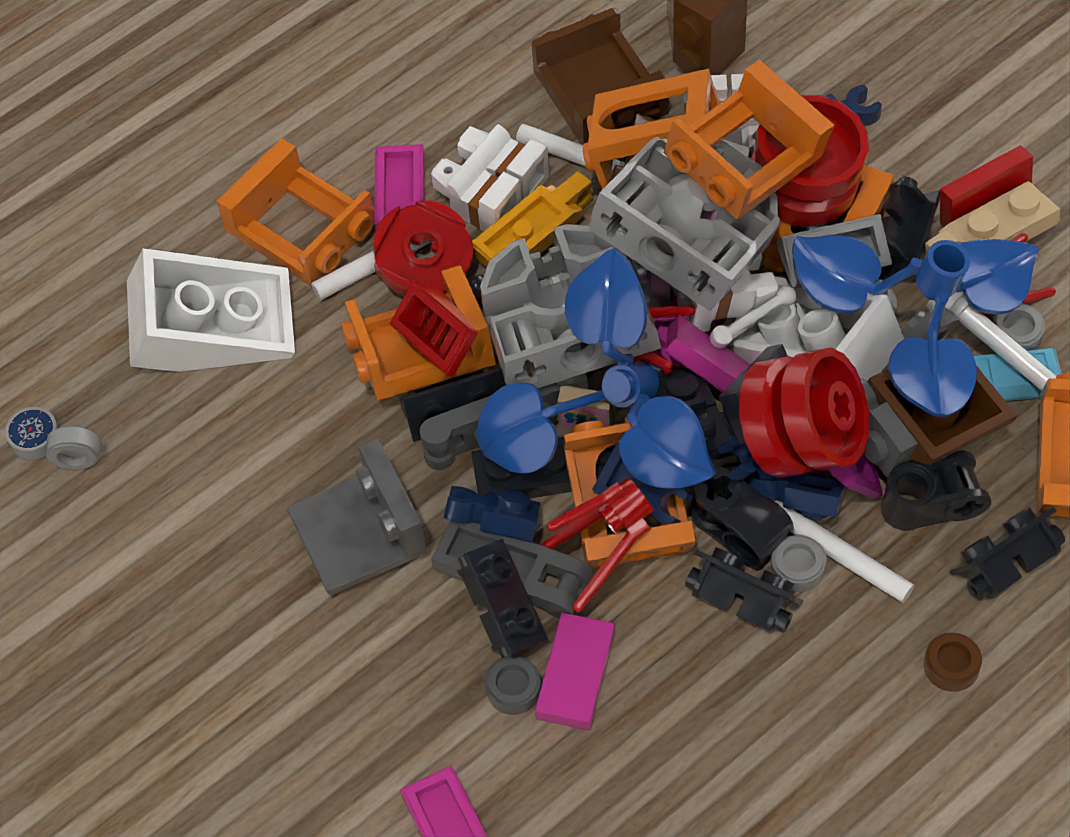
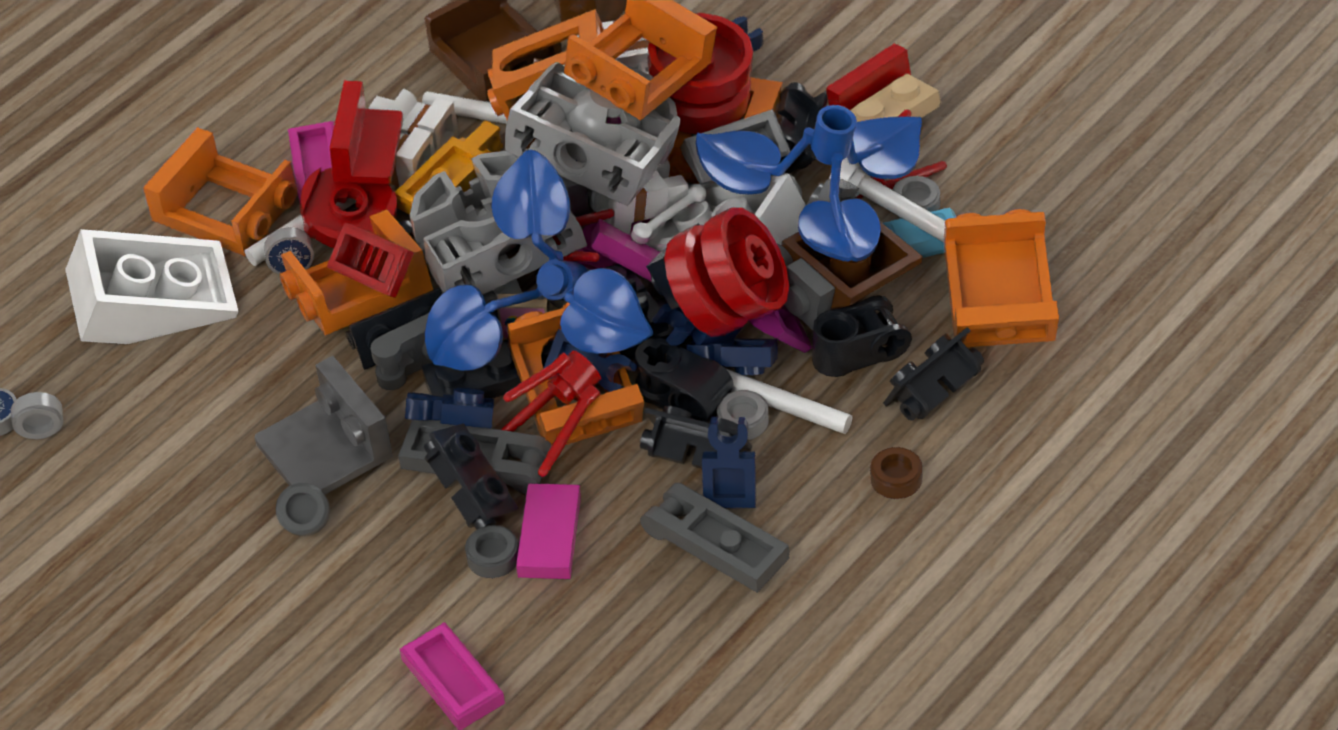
camera: 10 degrees left, 10 degrees down
(324, 604) = (302, 509): none -> dark grey tile
(357, 286) = (287, 240): none -> tile
(447, 182) = (363, 139): none -> red panel
(750, 711) = (716, 536): none -> dark grey plate
(774, 636) = (728, 473): none -> dark blue plate

